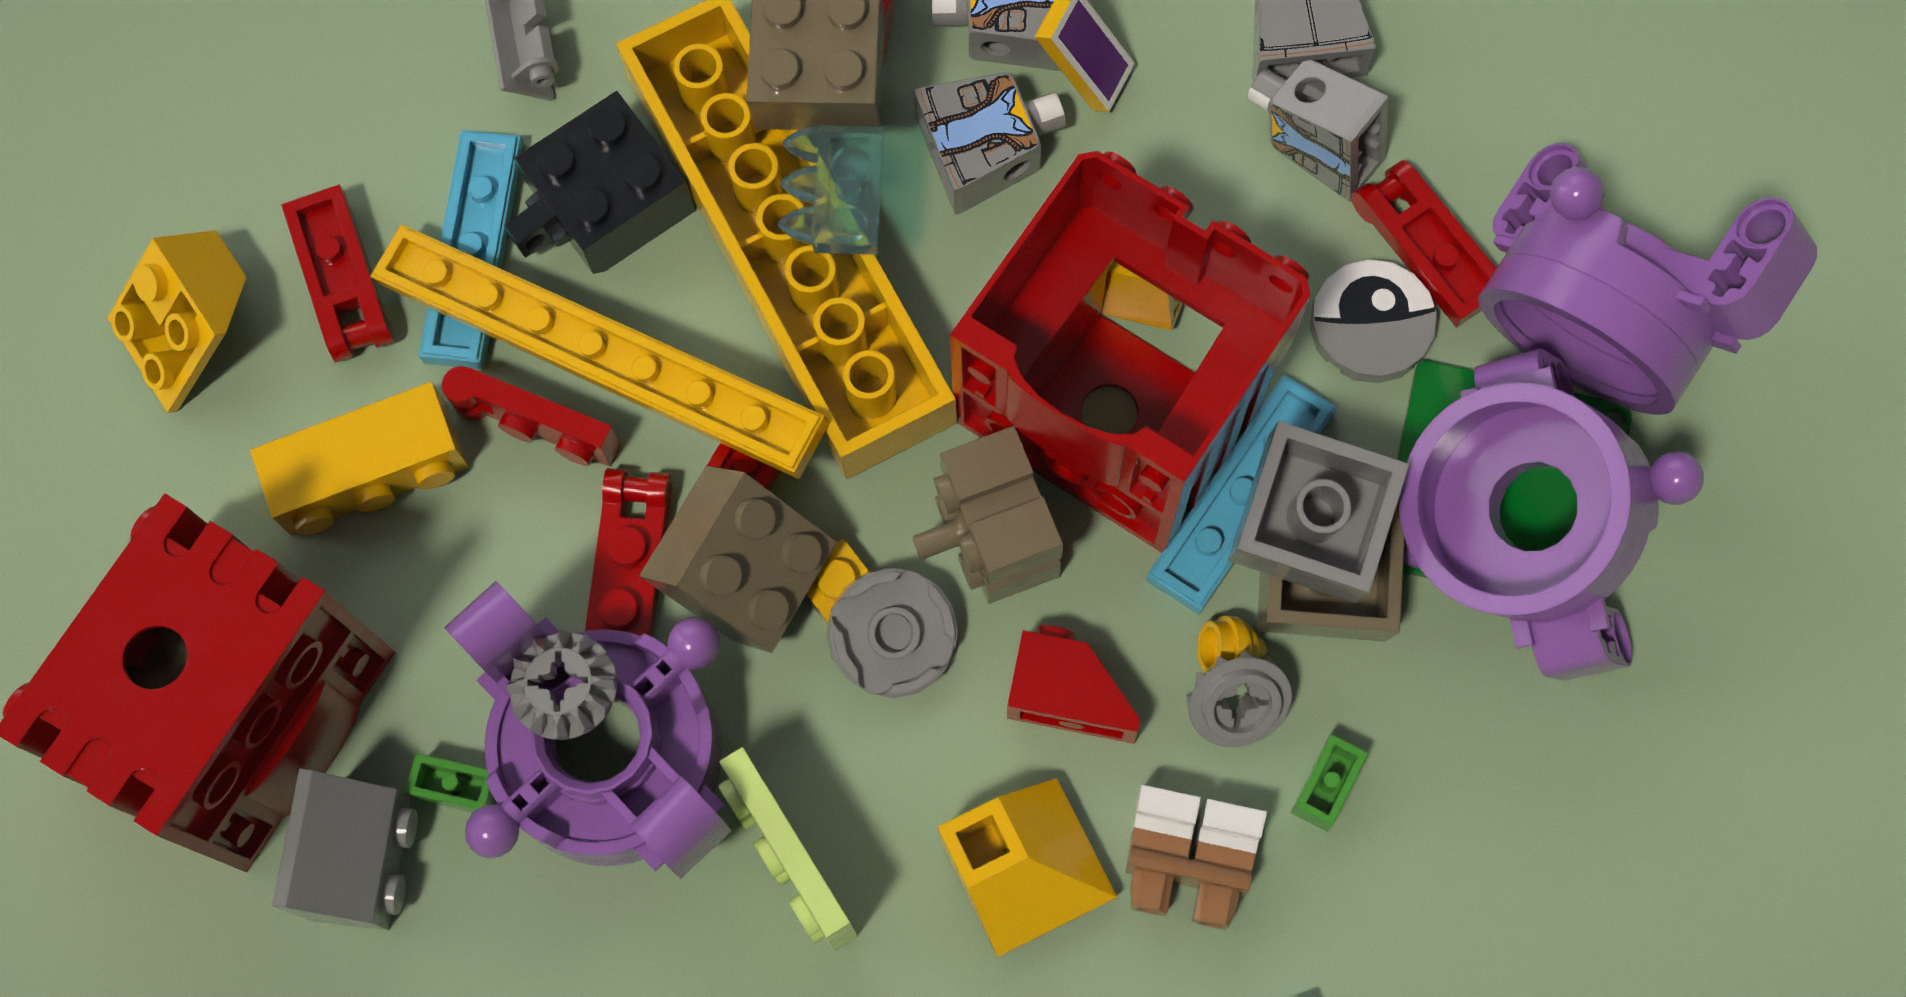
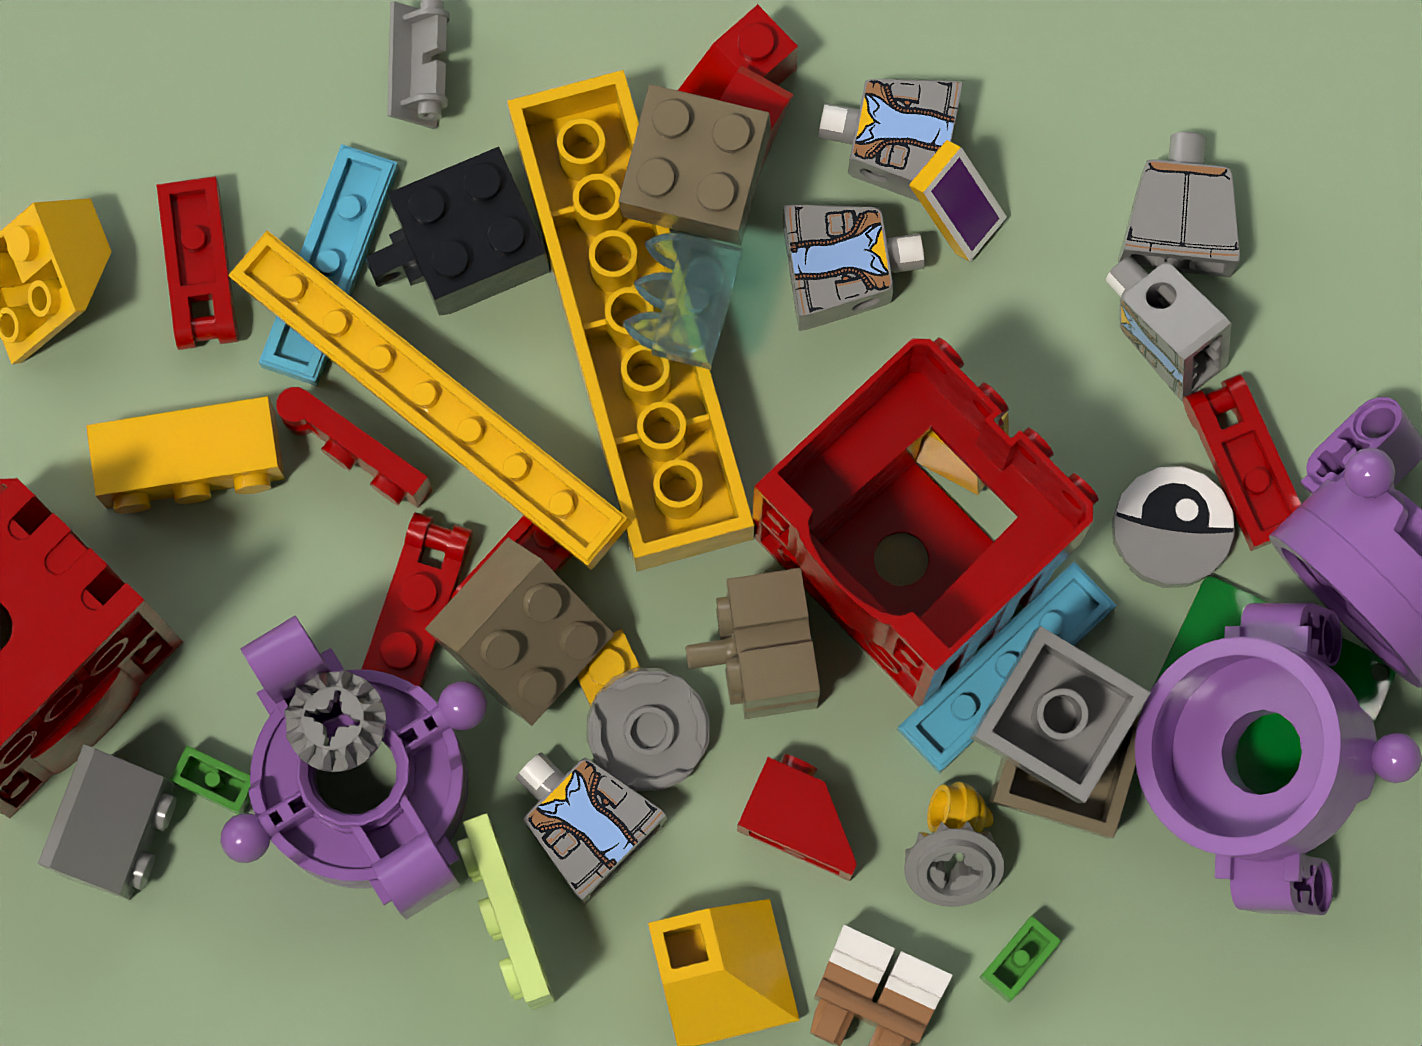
camera: 10 degrees right, 5 degrees up
(850, 740) = (586, 821): none -> torso

